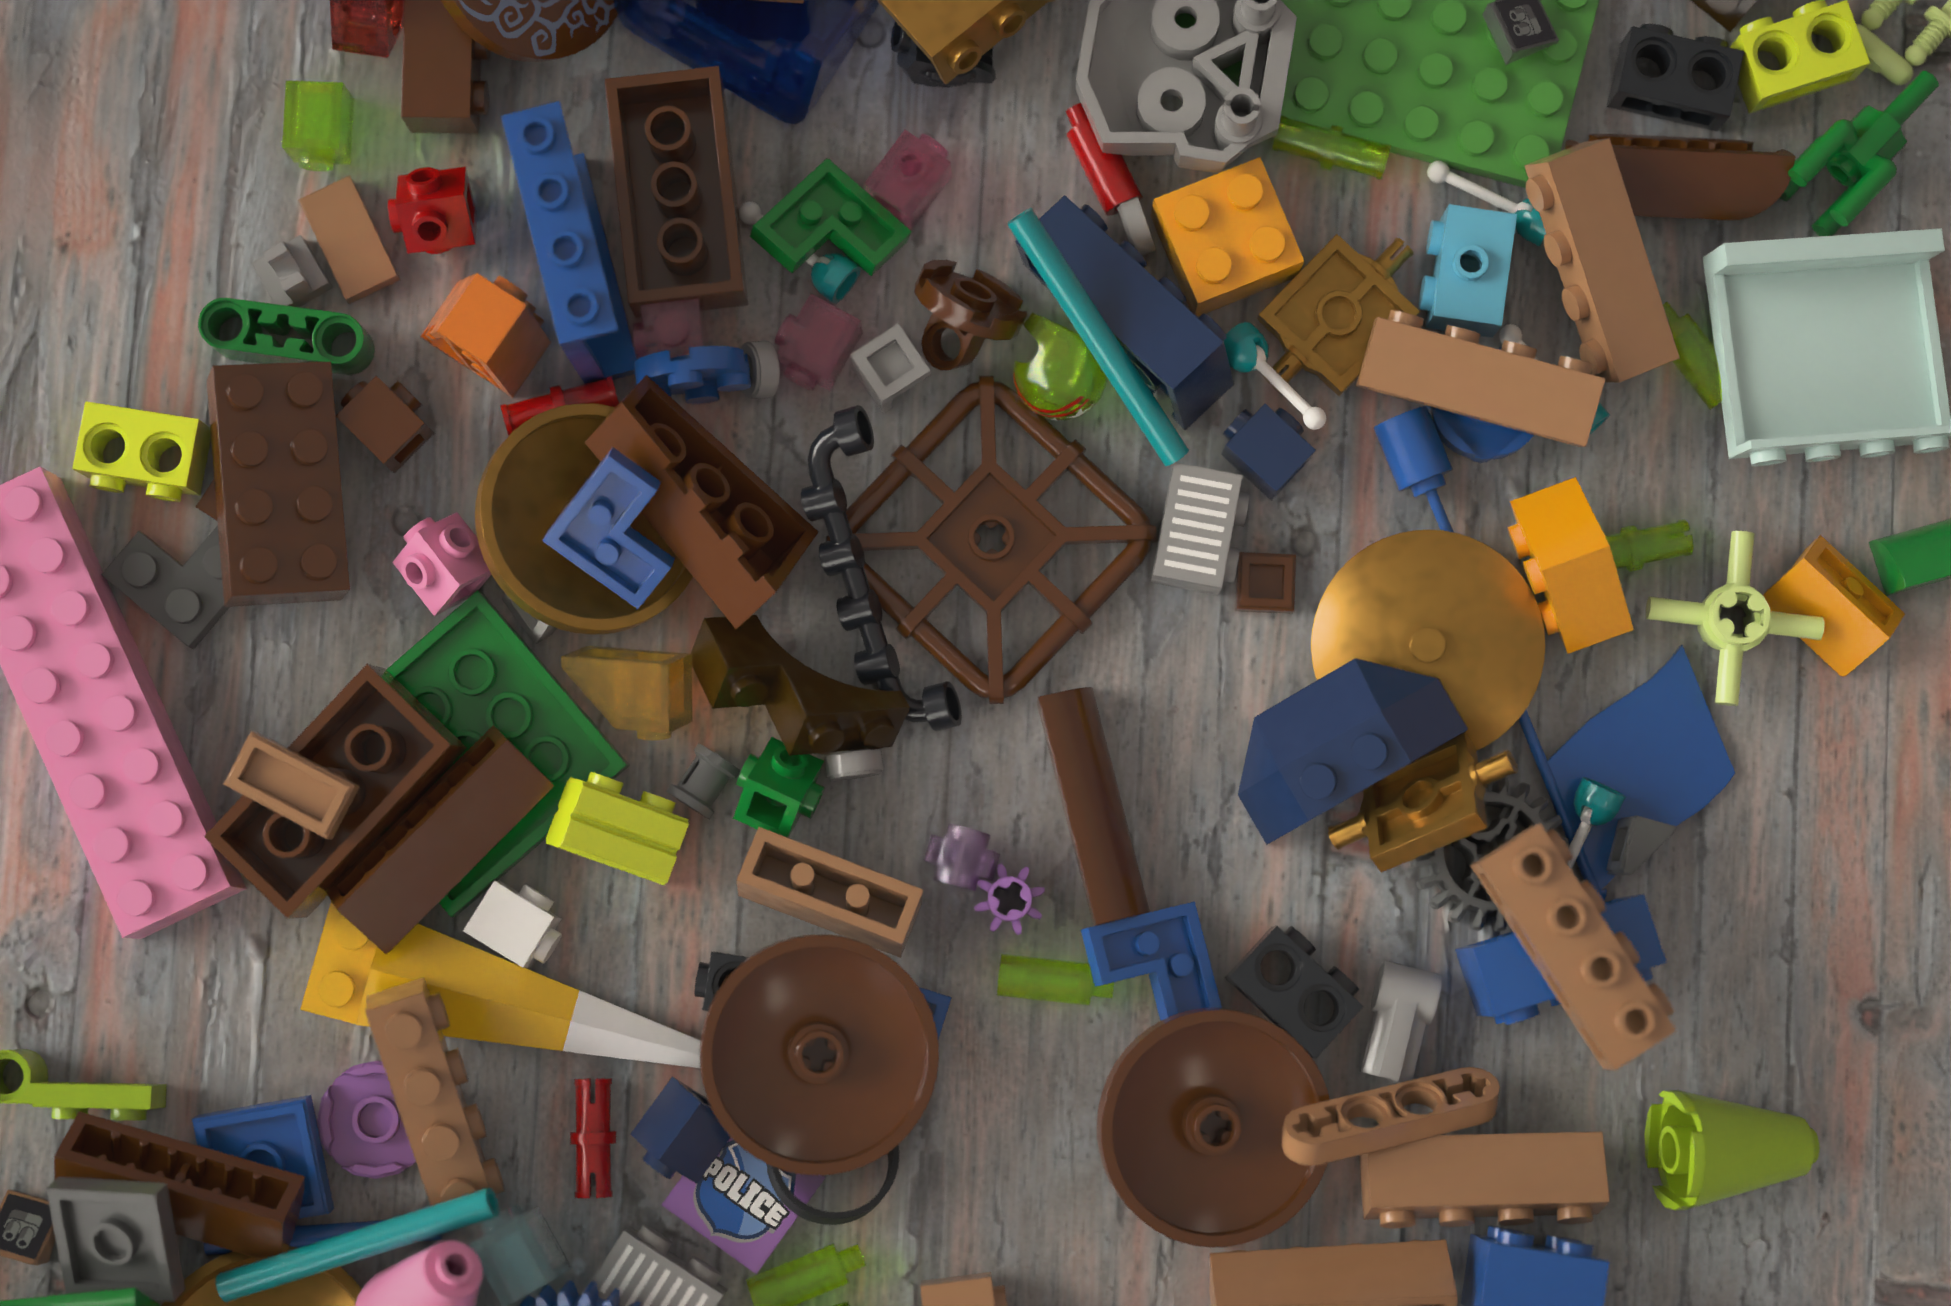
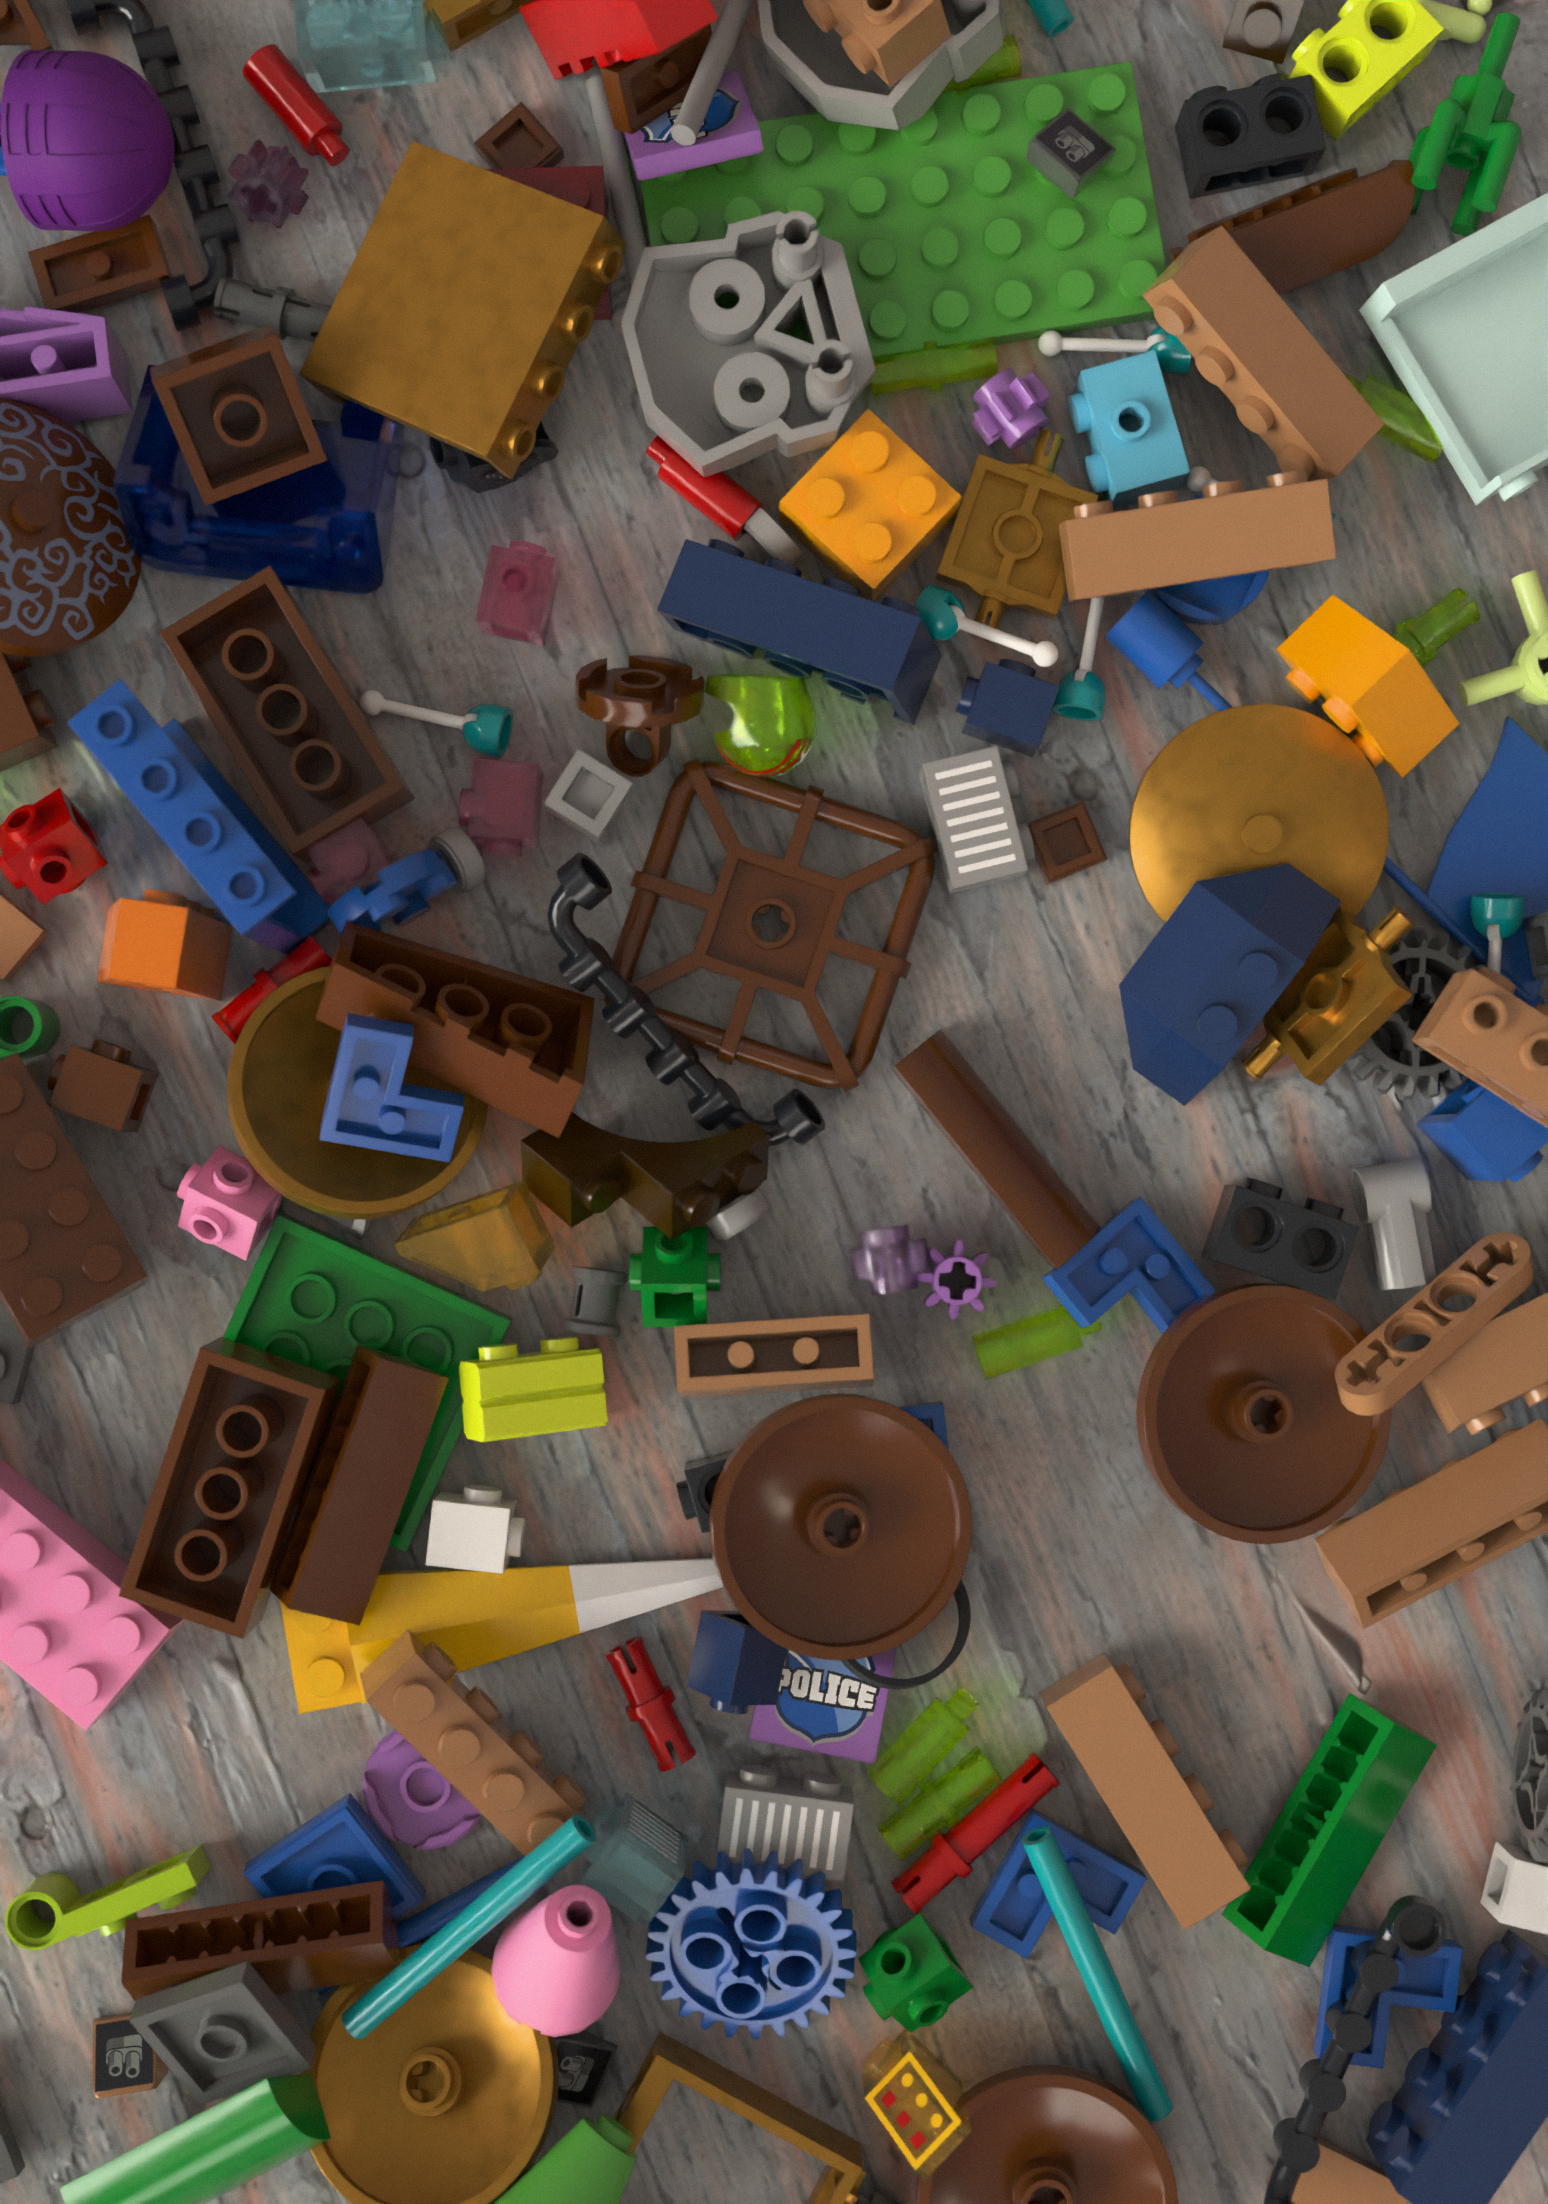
camera: 30 degrees left, 5 degrees up
(291, 785) = (182, 1505): medium nougat tile -> none
(833, 209) = (457, 660): green plate -> none
(1098, 336) = (787, 669): teal piece -> none
(1334, 464) = (1082, 691): none -> teal hinge
(1379, 209) = (1010, 408): none -> medium lavender gear

